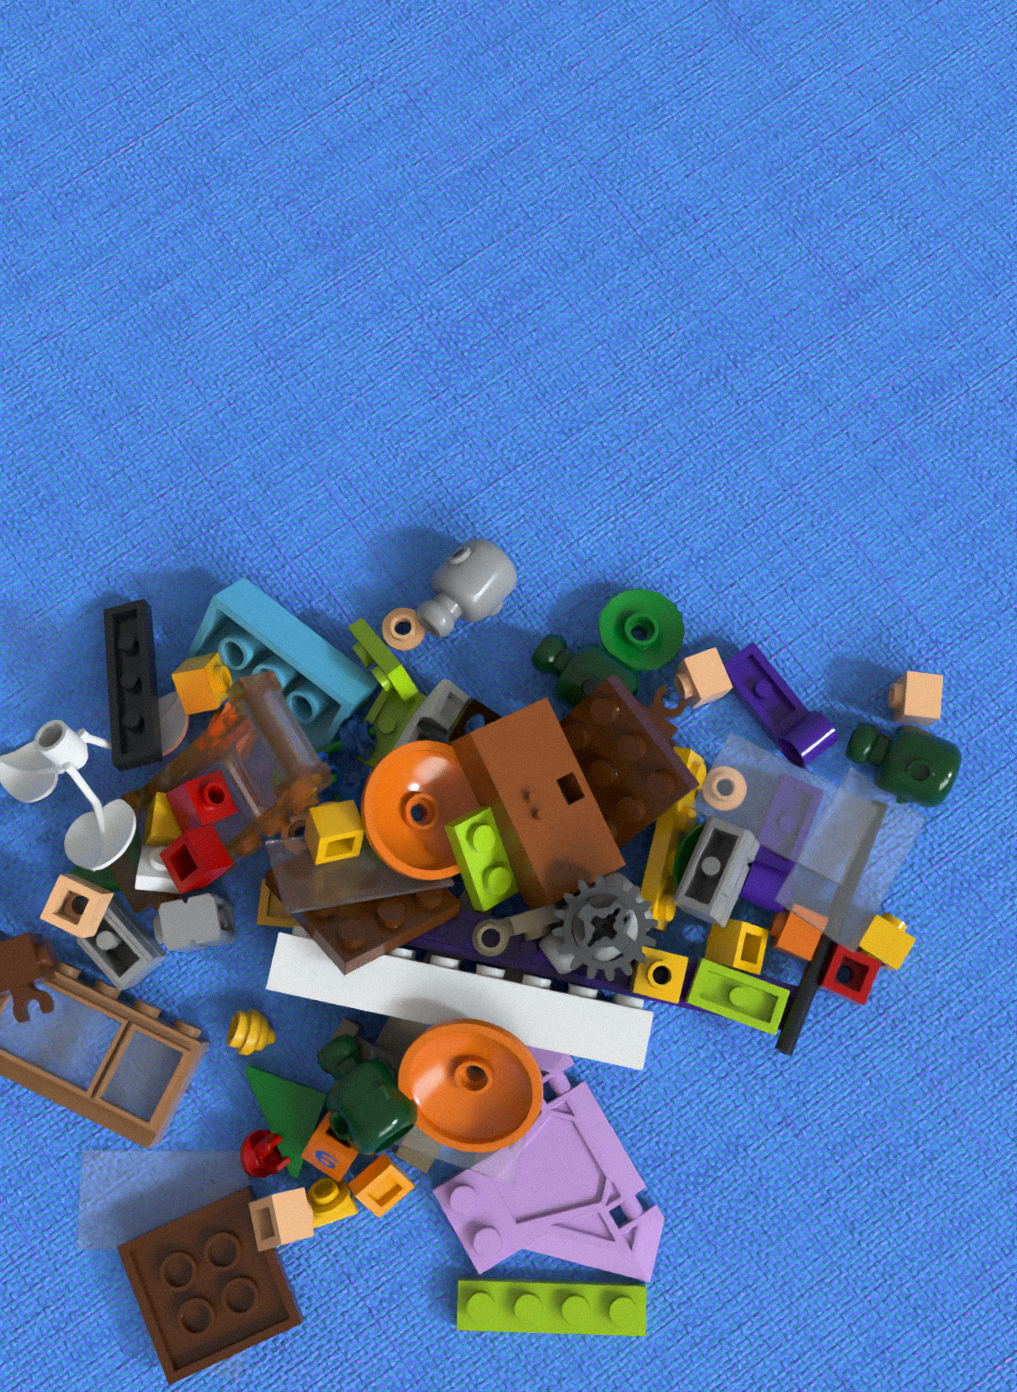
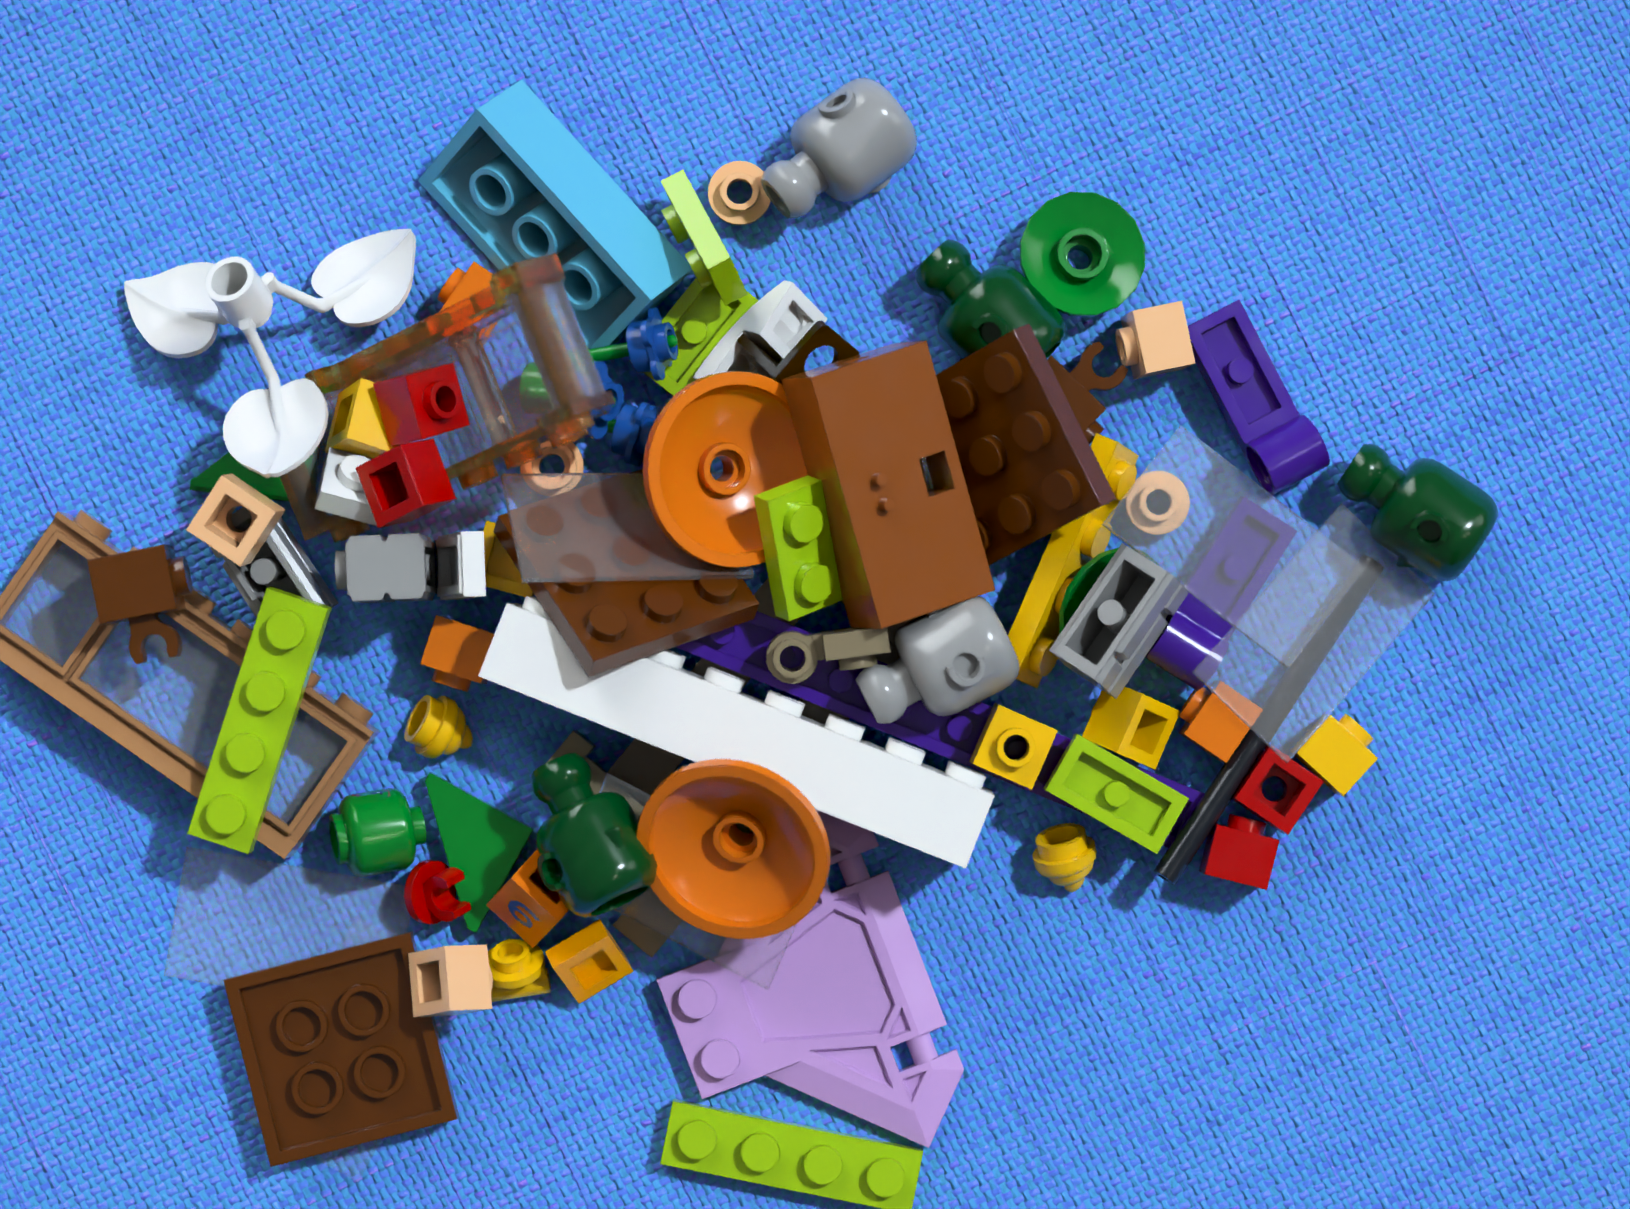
camera: 10 degrees right, 10 degrees up
(114, 1050) = (259, 720): none -> lime plate
(132, 686) = (341, 212): black plate -> none
(202, 683) = (441, 227): yellow plate -> none
(215, 1116) = (376, 832): none -> green head
(247, 912) = (460, 565): none -> white tile
(250, 976) = (456, 652): none -> orange plate
(334, 831) = (600, 477): yellow plate -> none
(588, 913) = (929, 650): dark grey gear -> none
(707, 1047) = (1064, 855): none -> yellow plate
(831, 1024) = (1240, 852): none -> red plate
(916, 698) = (1456, 421): light nougat plate -> none

